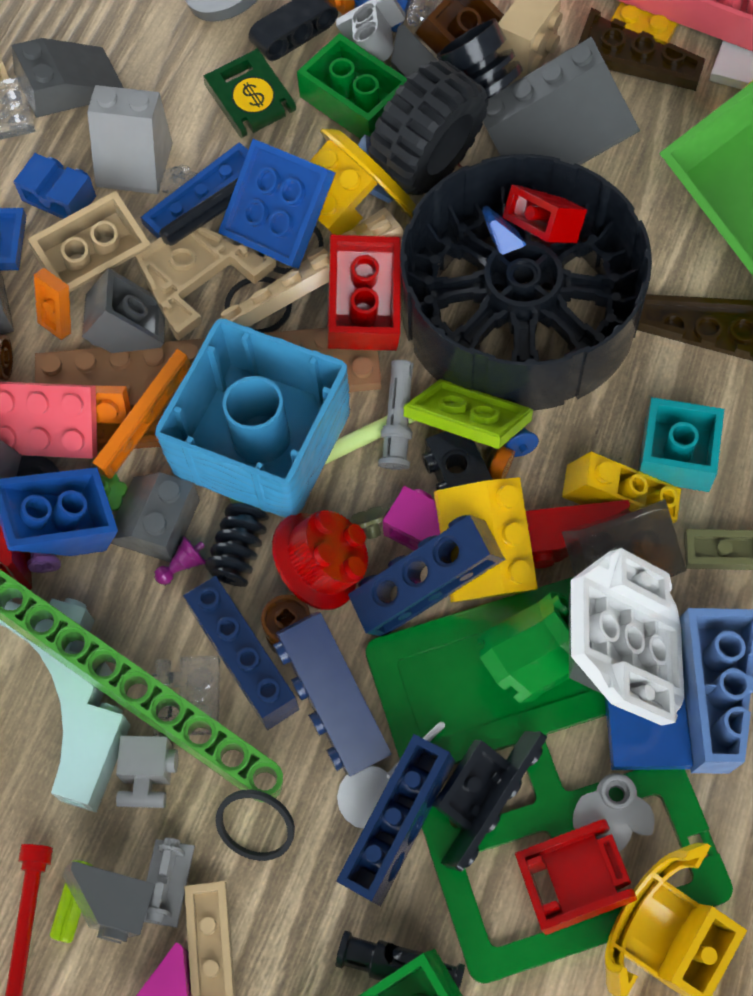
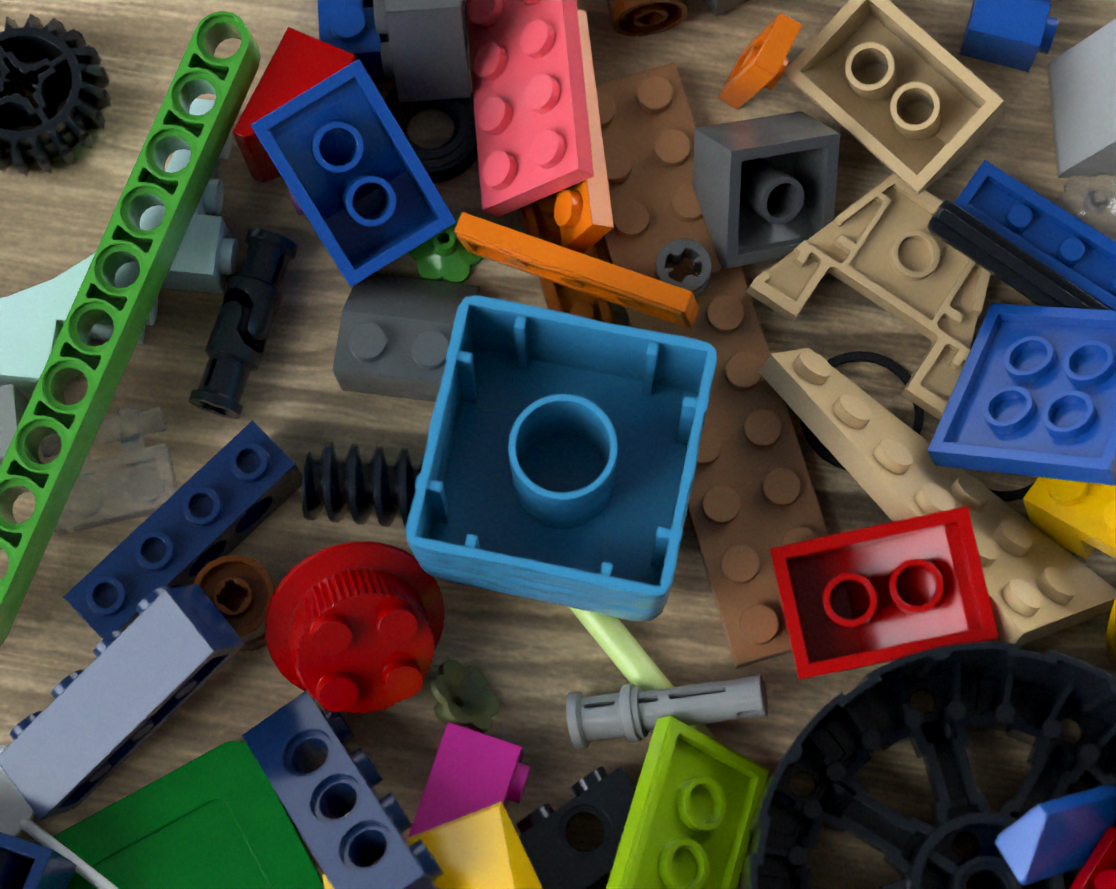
camera: 80 degrees right, 10 degrees up
(118, 604) = (243, 323): none -> black piece
(152, 354) = (674, 254): none -> dark grey bush
(186, 557) = (347, 410): magenta piece -> none

